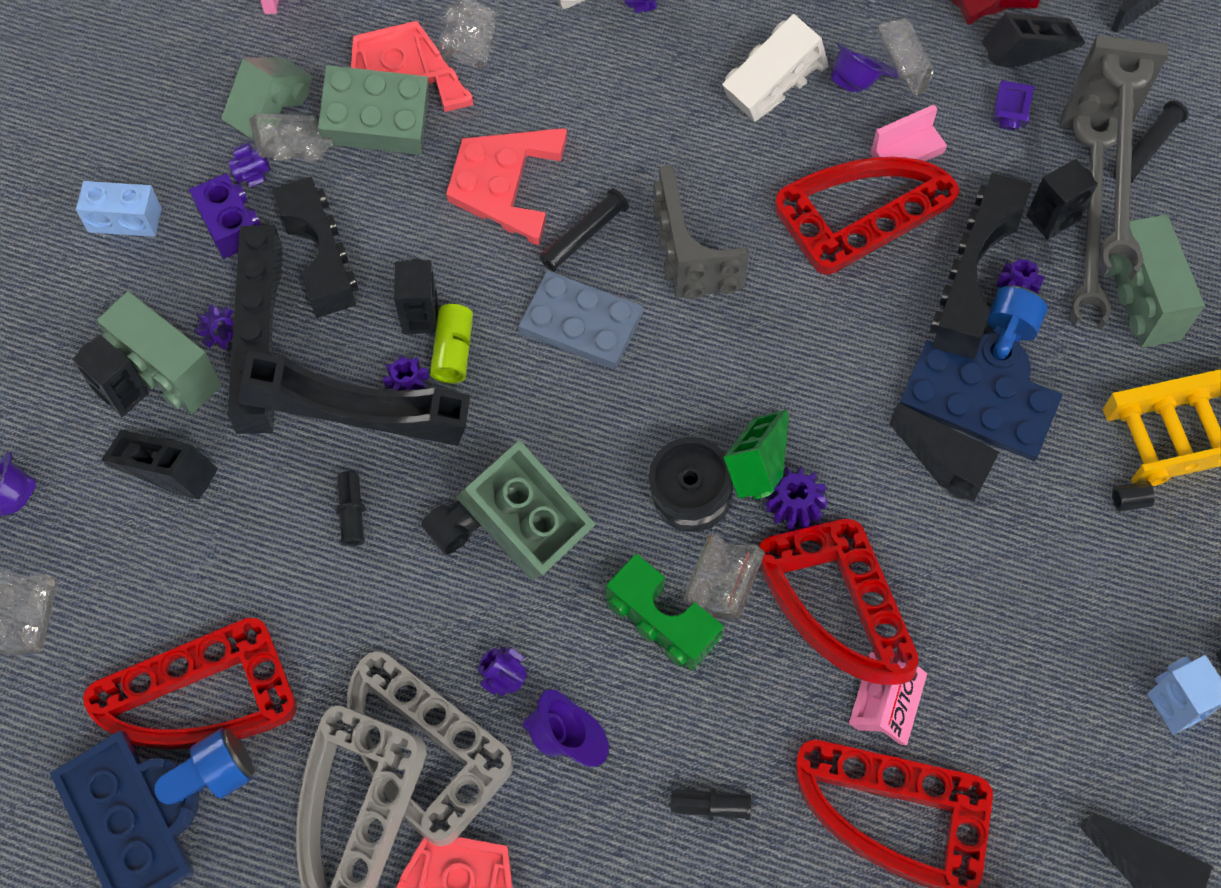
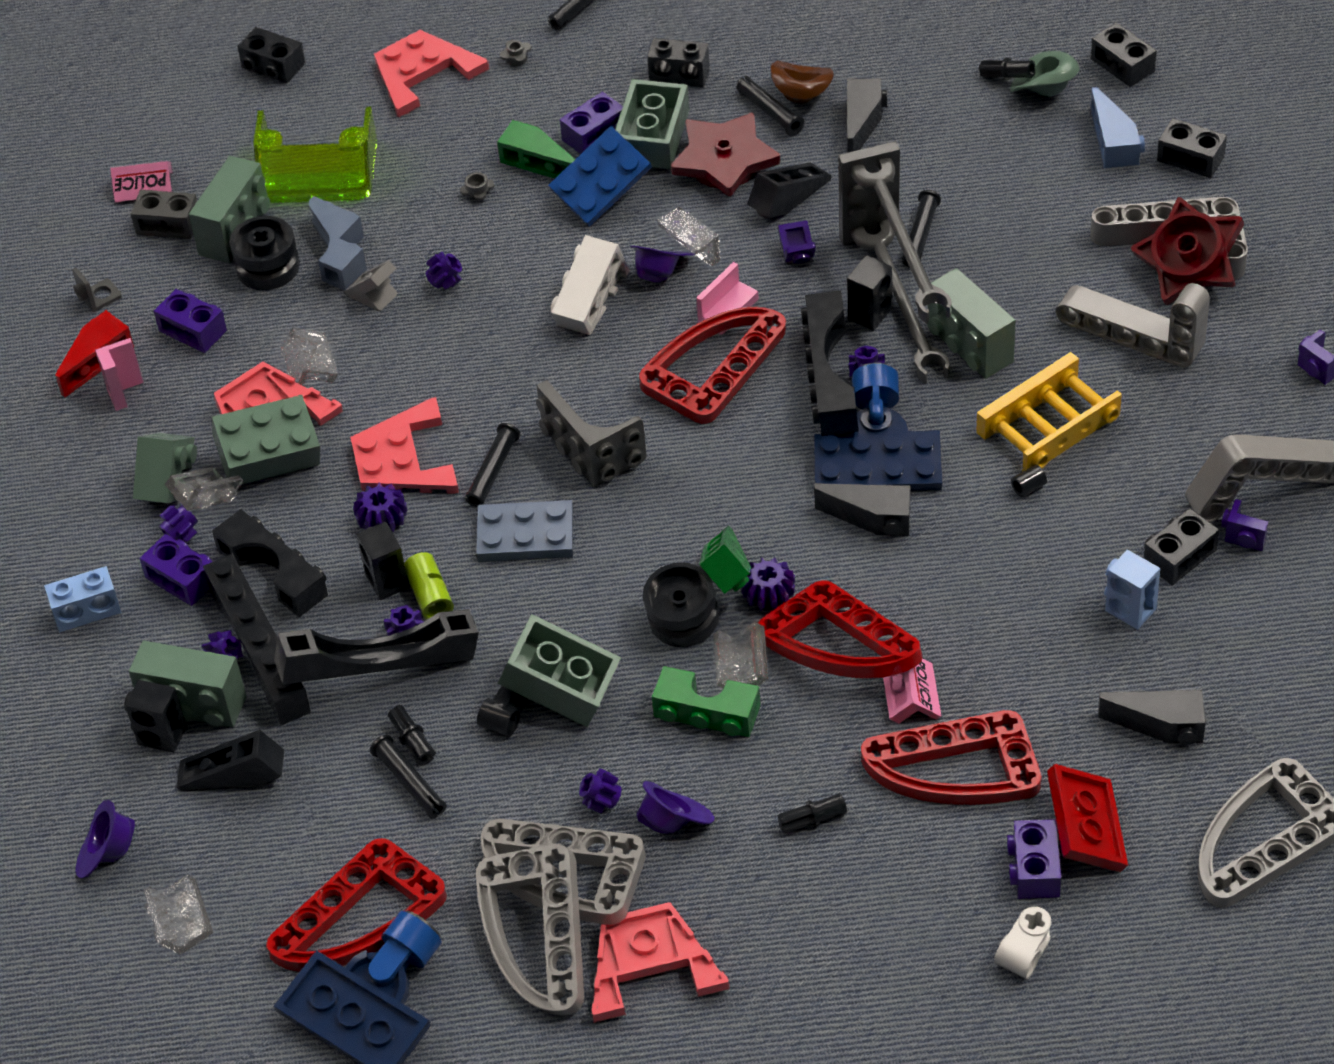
camera: 20 degrees left, 15 degrees down
(323, 556) = (407, 775): none -> black pin
(449, 232) = (380, 506): none -> dark purple gear

